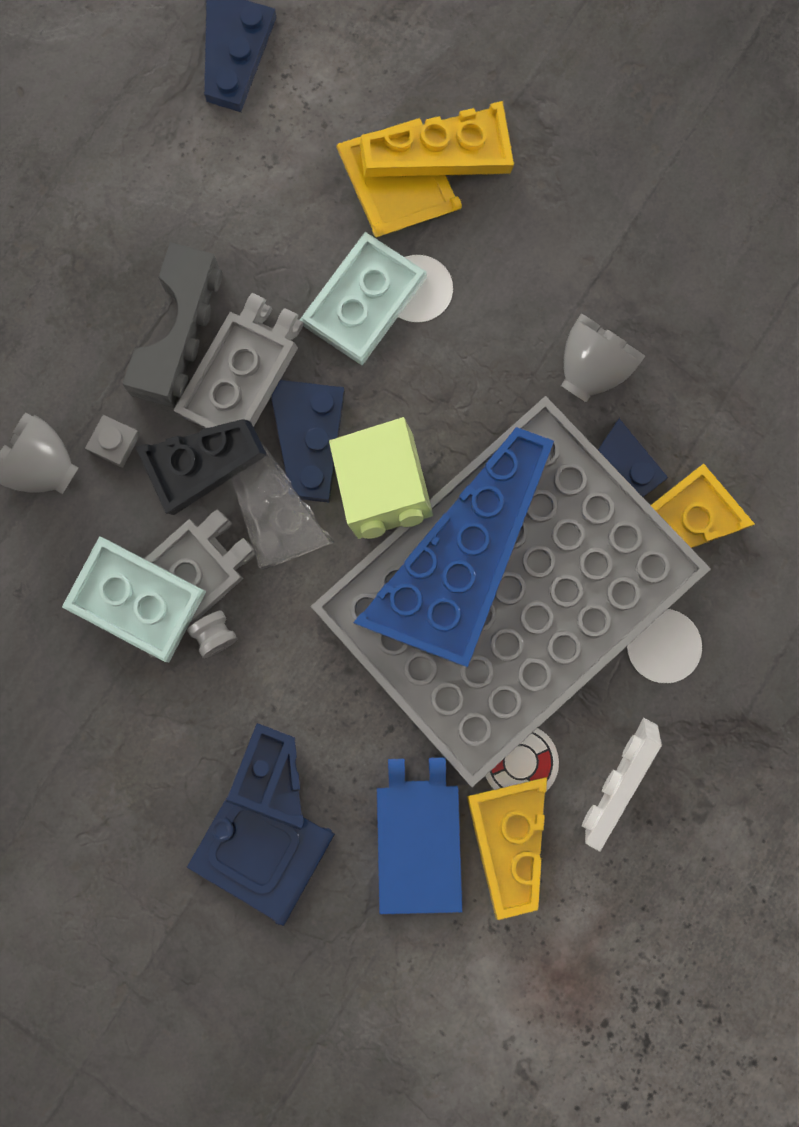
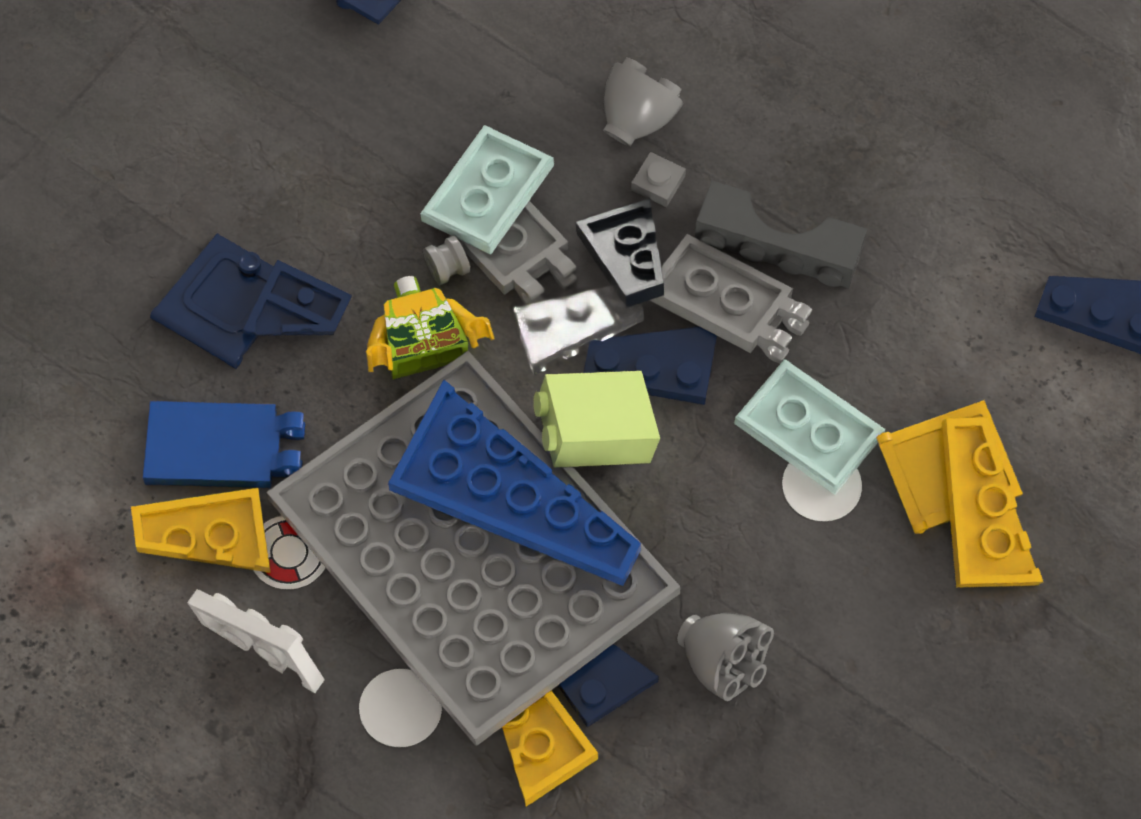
camera: 90 degrees right, 15 degrees down
(291, 651) = (422, 331): none -> torso

